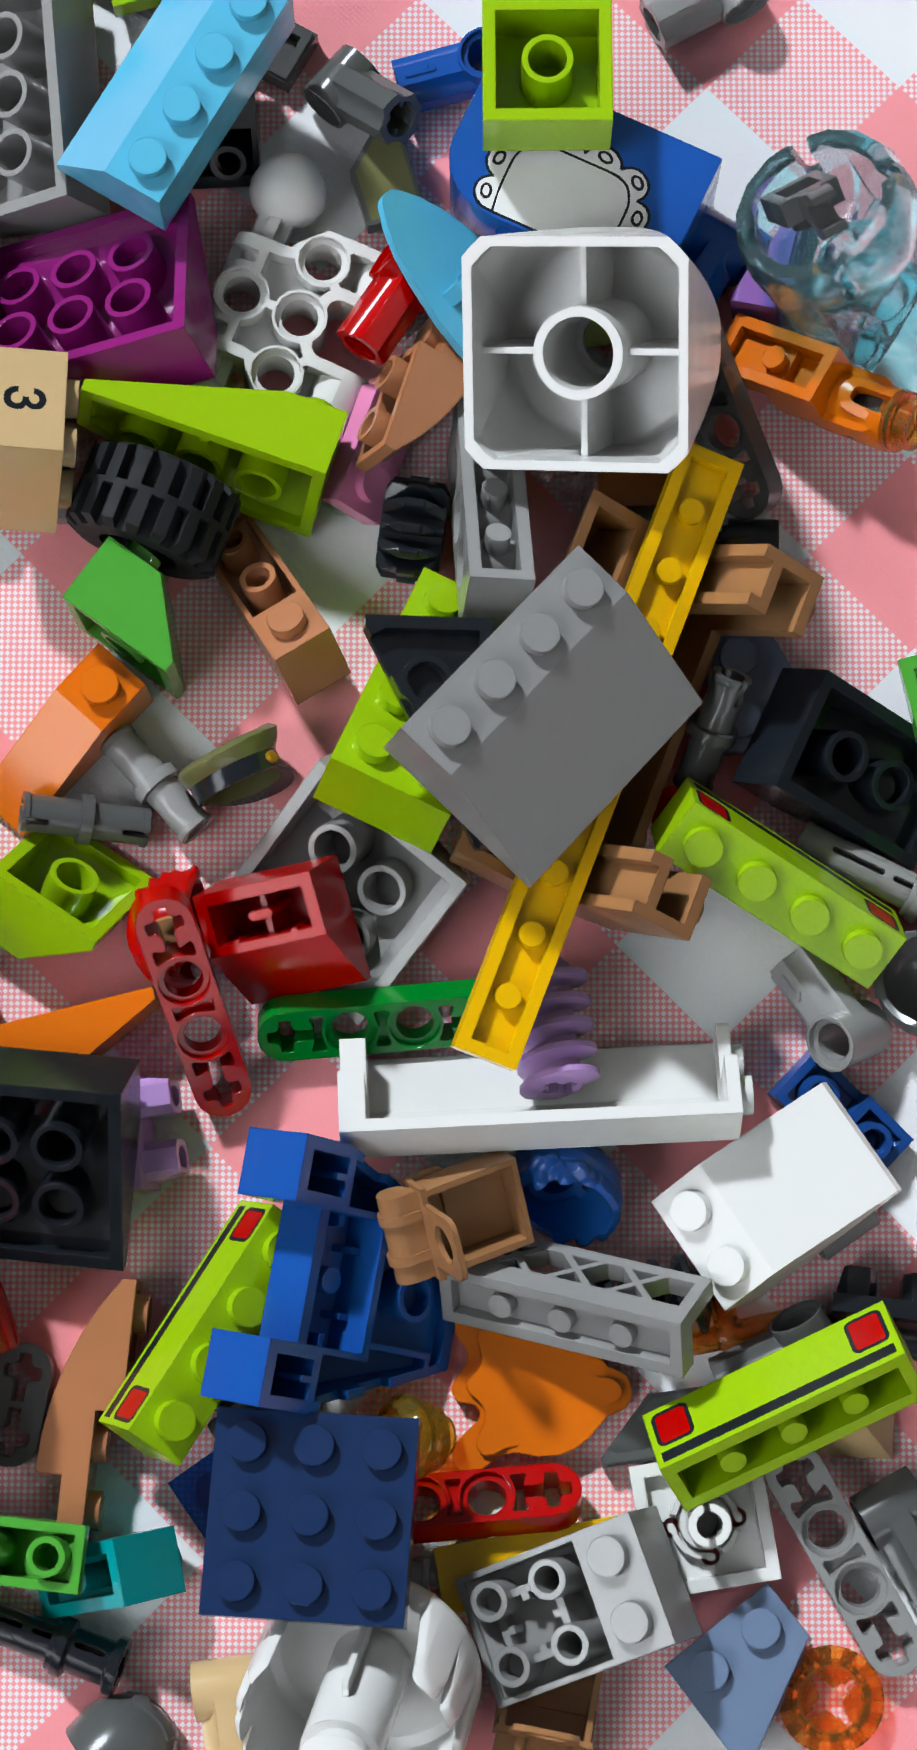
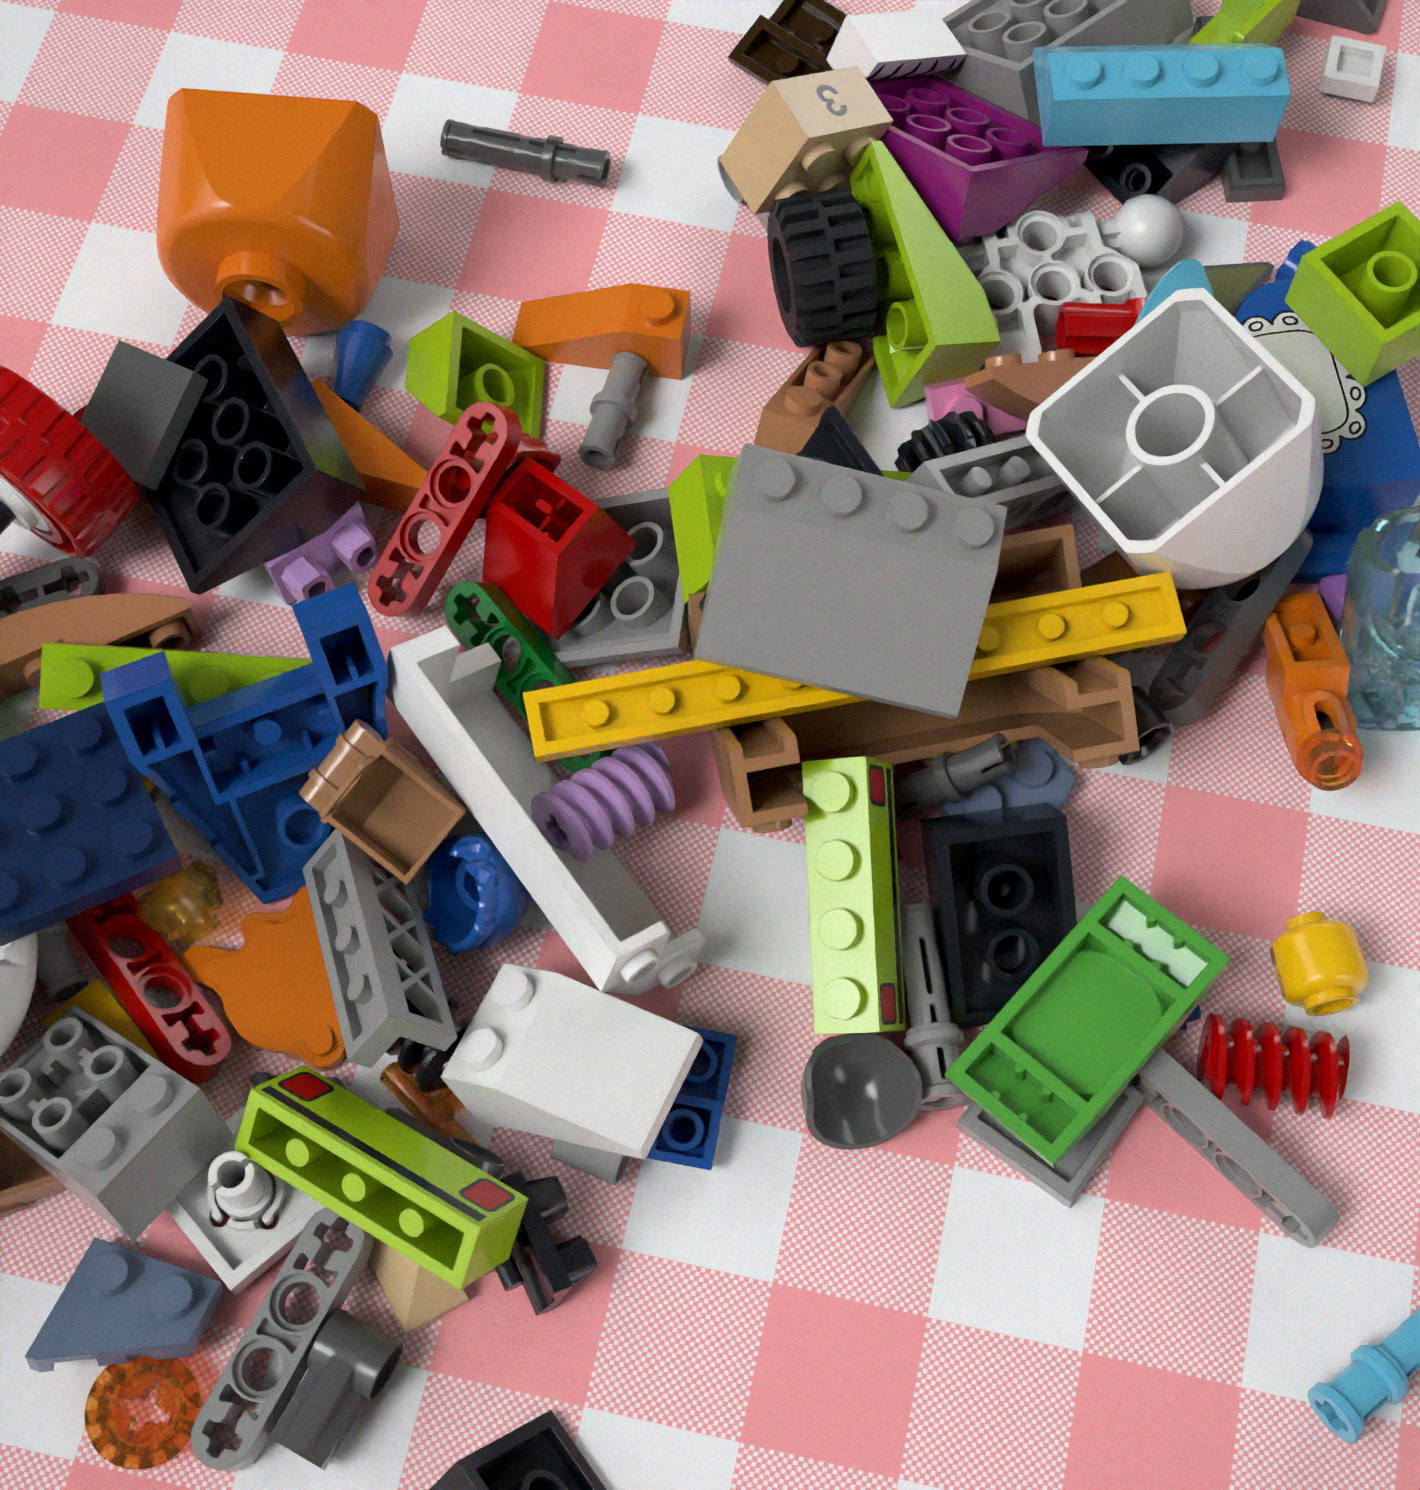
camera: 55 degrees right, 15 degrees down
(84, 819) = (548, 373): dark grey pin -> none
(128, 610) = (734, 303): bright green slope -> none
(239, 770) = (658, 442): piece -> none
(355, 93) = (1261, 235): dark grey piece -> none
(839, 1025) = (769, 1036): light grey piece -> none

